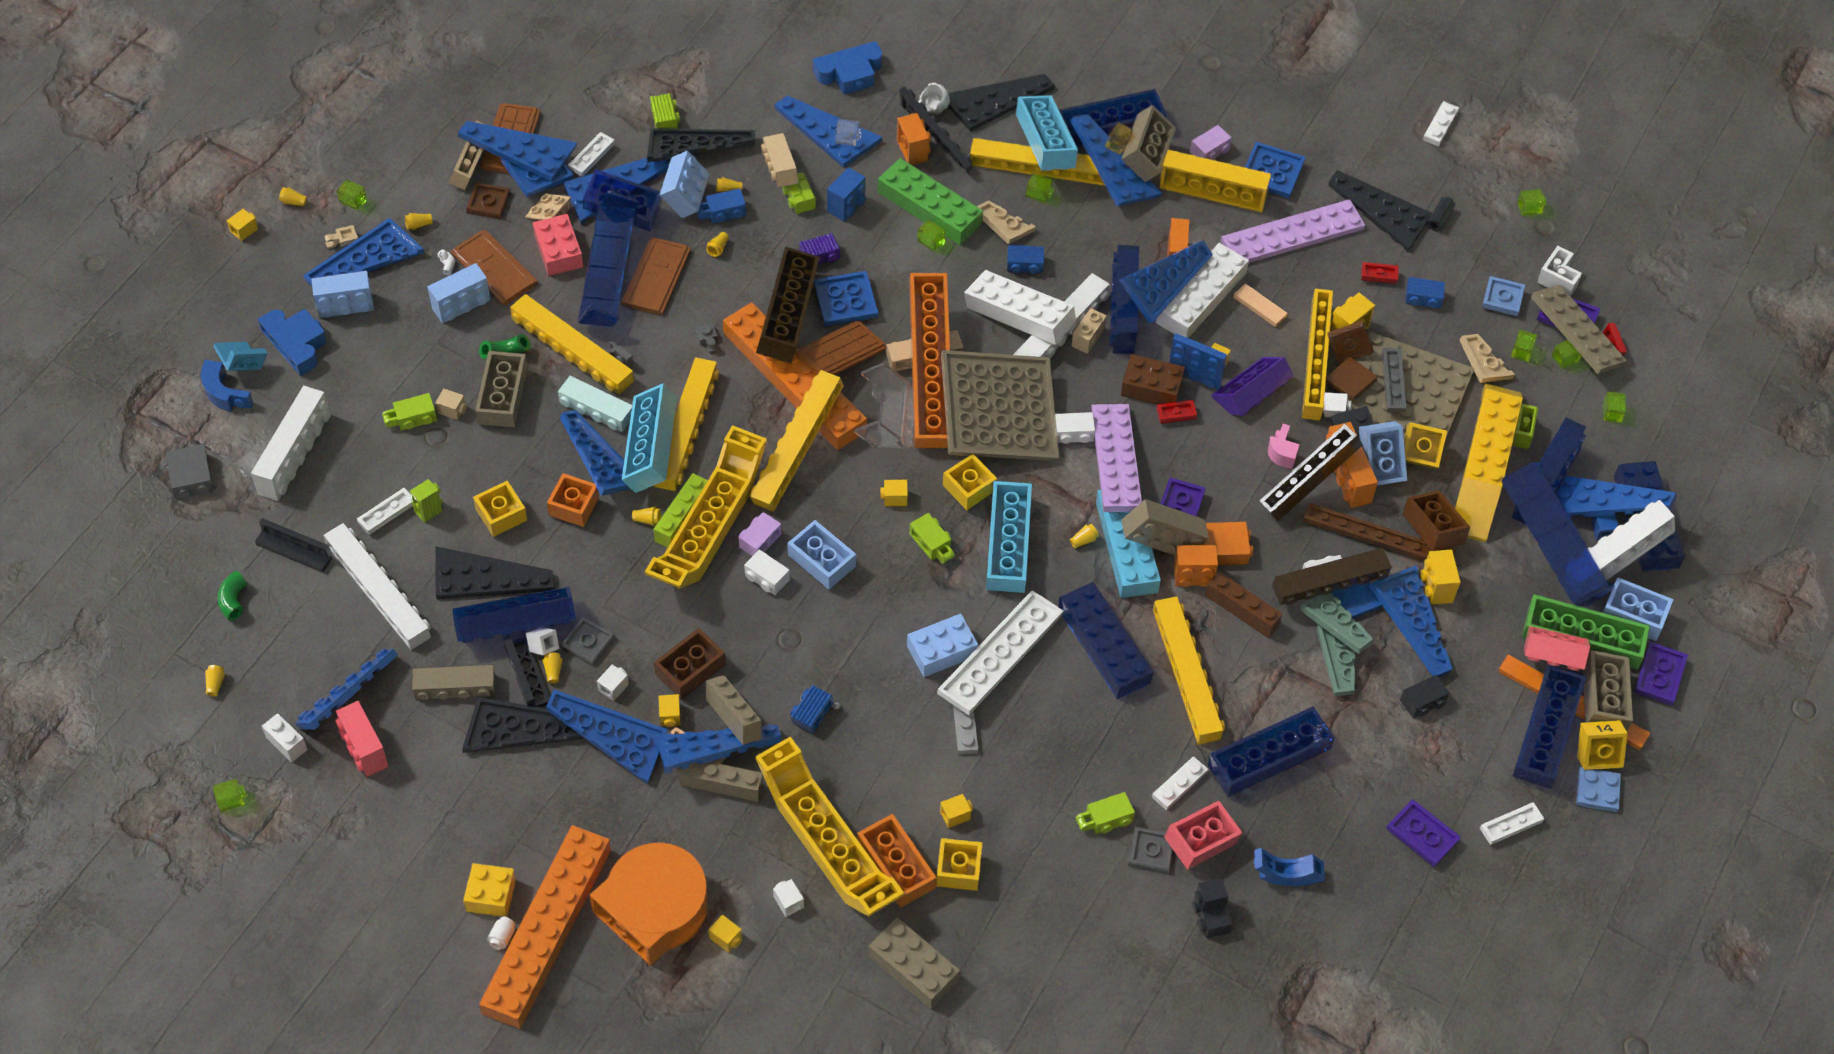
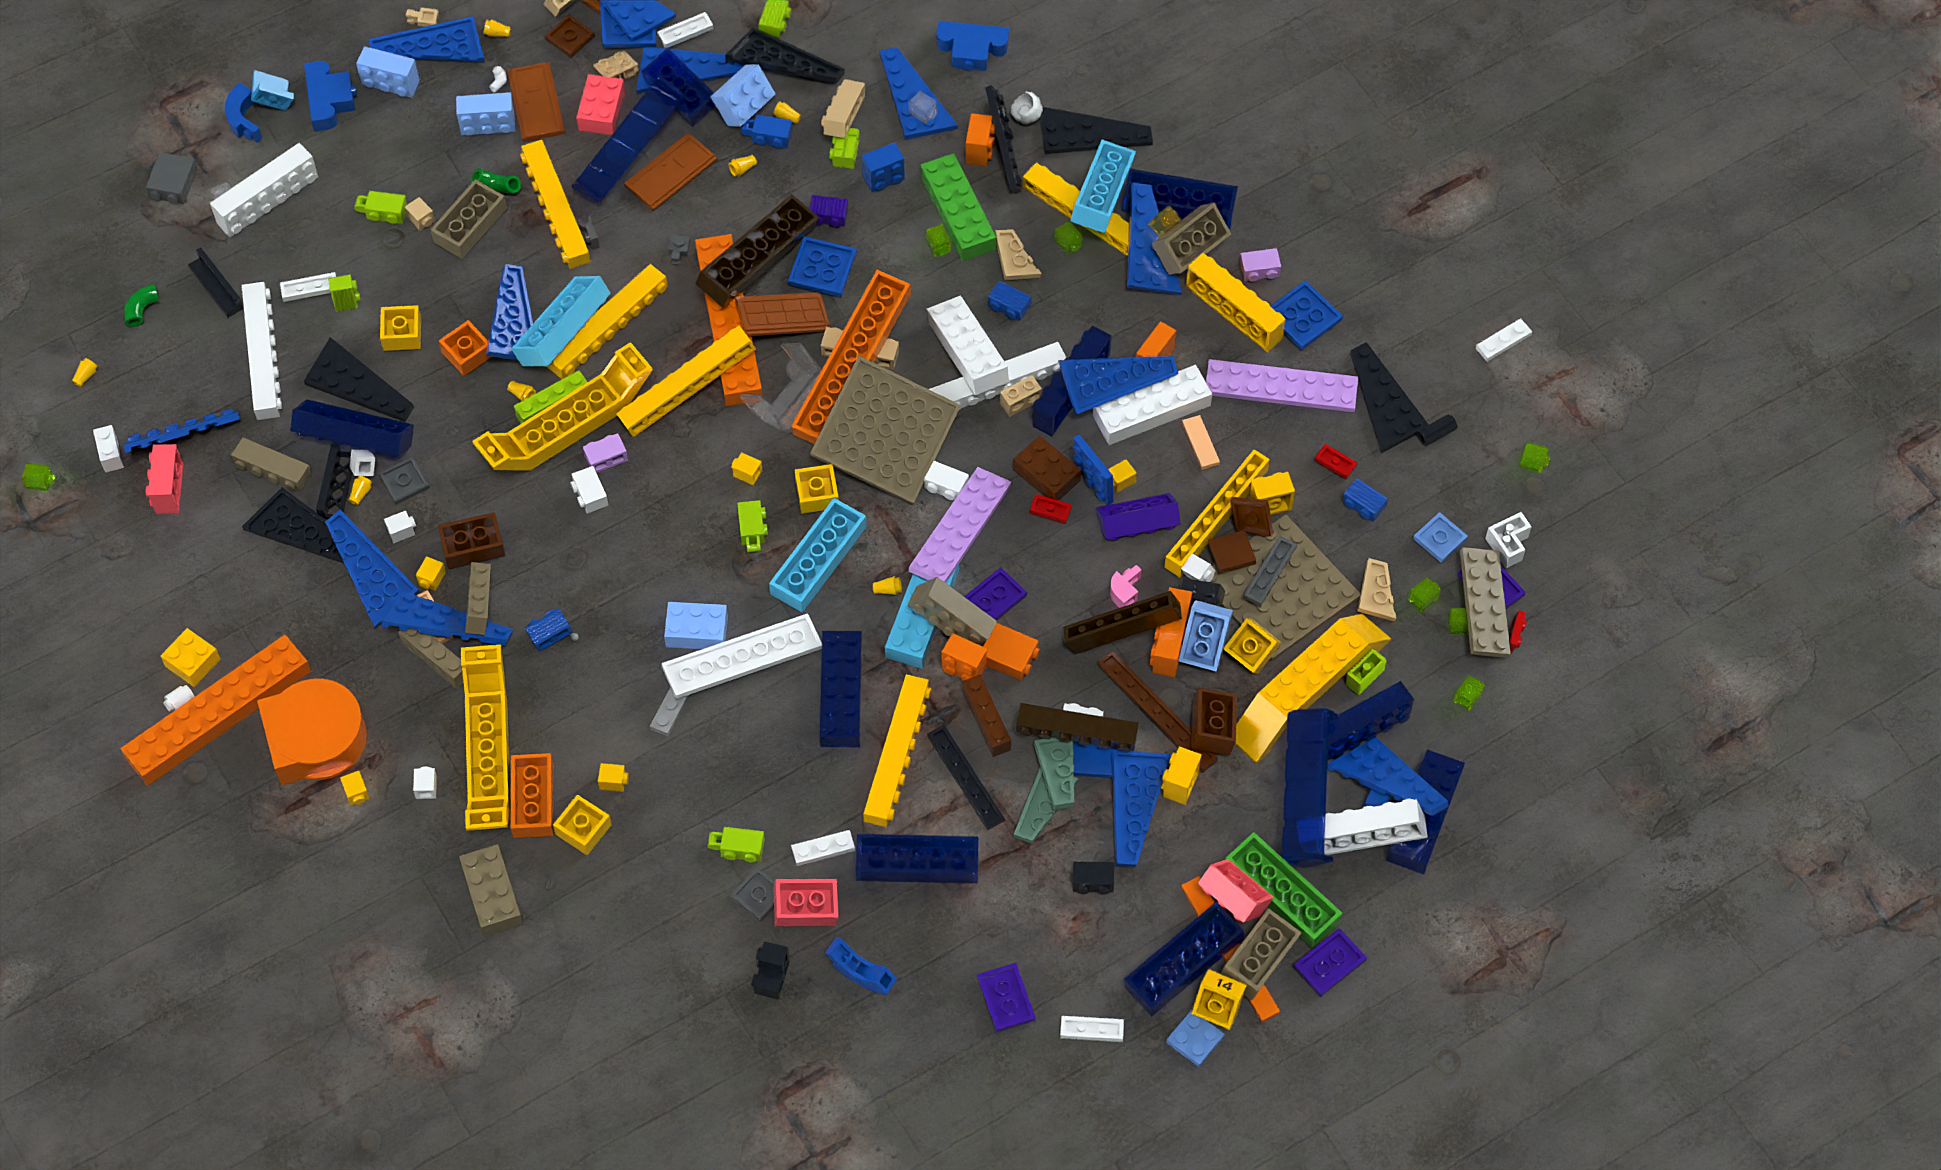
camera: 30 degrees right, 5 degrees up
(595, 404) = (540, 267): light aqua brick -> none
(821, 554) = (644, 495): light blue brick -> none
(1259, 665) = (965, 777): none -> black tile
(1638, 605) = (1348, 891): light blue brick -> none

